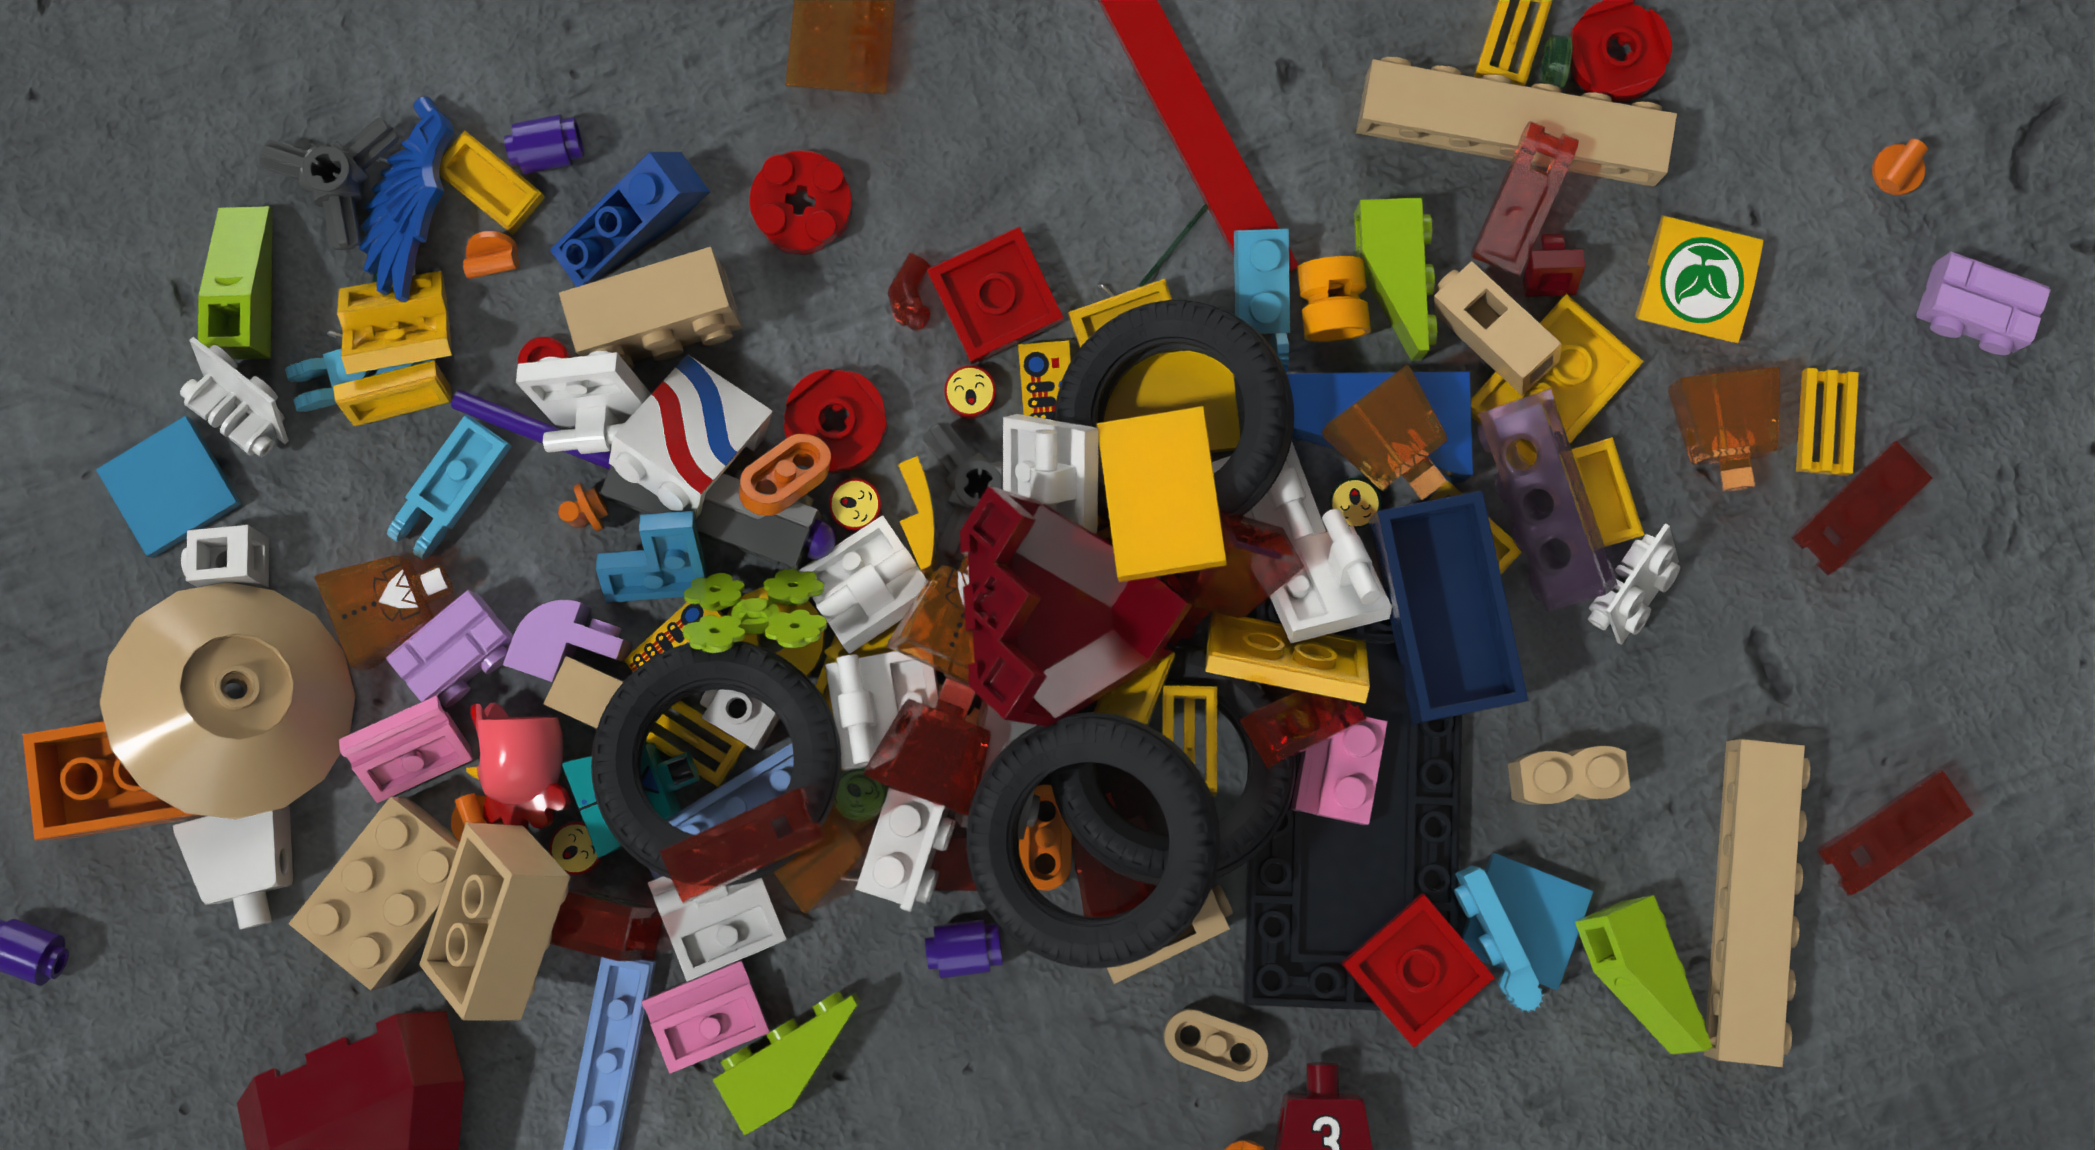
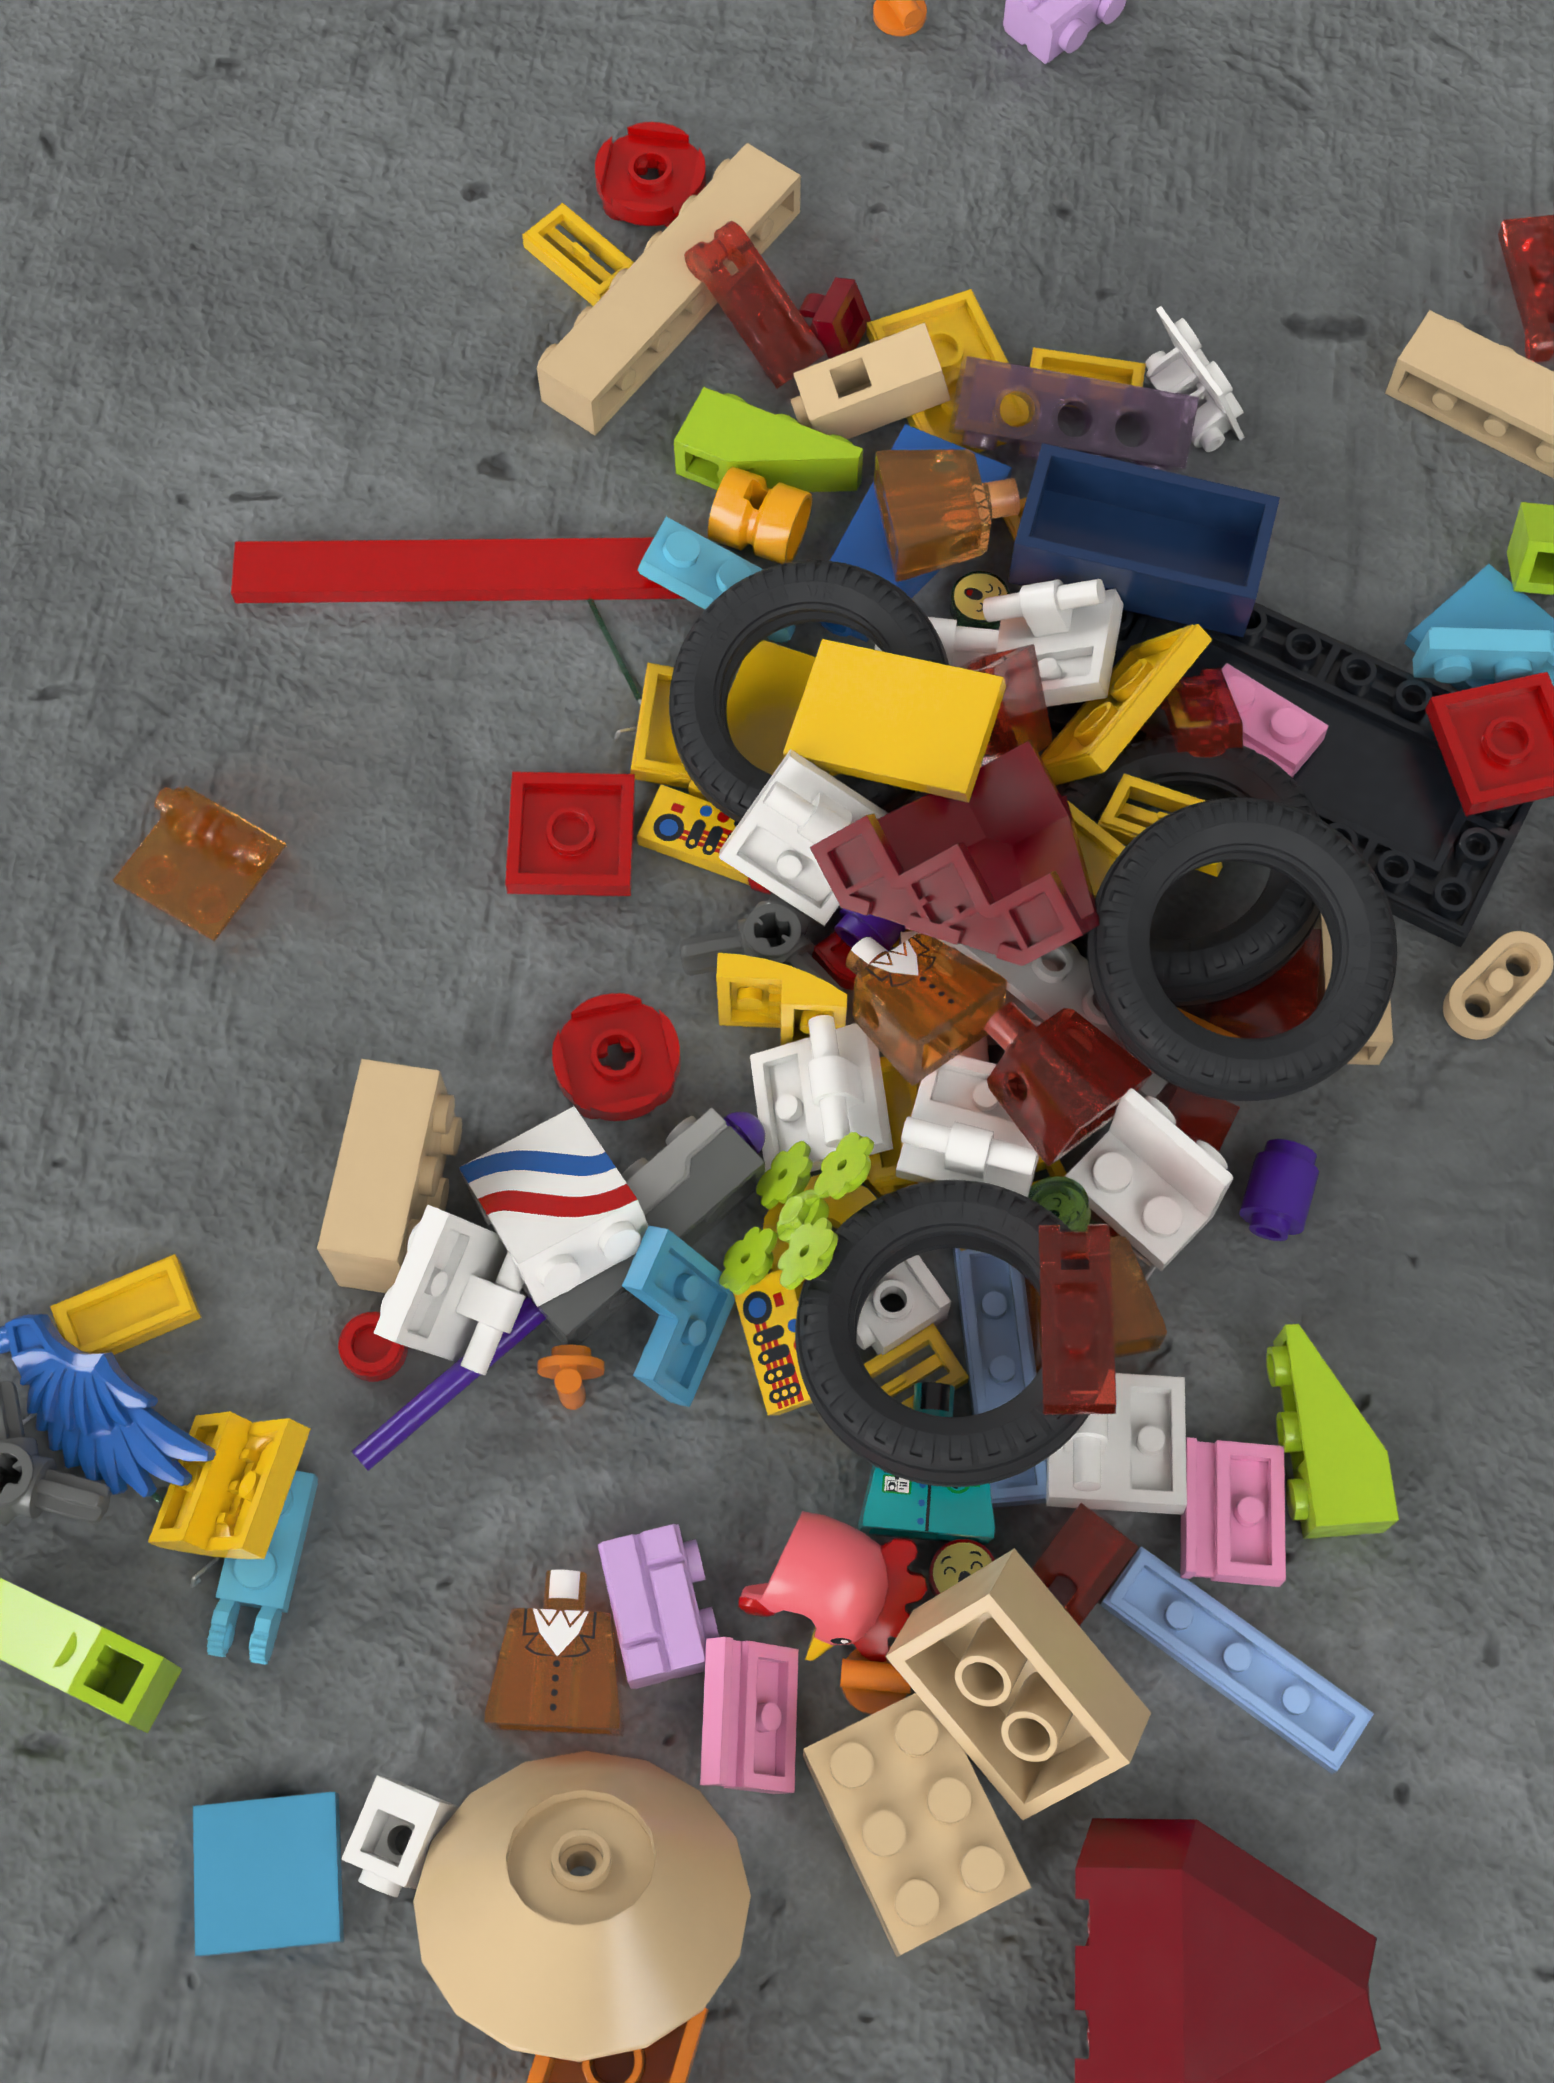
camera: 65 degrees left, 15 degrees down
(229, 399) = (205, 1708): white hinge -> none
(239, 860) = (785, 1999): white torso -> none
(393, 393) = (311, 1531): yellow tile -> none
(449, 484) = (453, 1515): medium azure hinge -> none
(490, 254) = (213, 1341): orange plate -> none
(544, 143) = (122, 1220): dark purple brick -> none
(555, 632) = (697, 1474): lavender brick -> none
(581, 691) = (792, 1468): tan brick -> none
(630, 216) = (263, 1172): blue slope -> none
(780, 477) = (656, 1118): orange plate -> none
(784, 177) = (358, 1017): red plate -> none
(855, 504) = (721, 1082): light yellow tile -> none
(904, 294) = (518, 925): clear red arm -> none
(970, 392) = (660, 909): light yellow tile -> none
(1556, 60) = (630, 225): clear green tile -> none
(1579, 774) = (1361, 528): tan brick -> none
(1700, 279) = (915, 208): slope -> none
(1729, 420) = (1070, 242): clear orange torso -> none
(1847, 422) = (1116, 165): yellow tile -> none
(1862, 506) = (1210, 180): clear red plate -> none

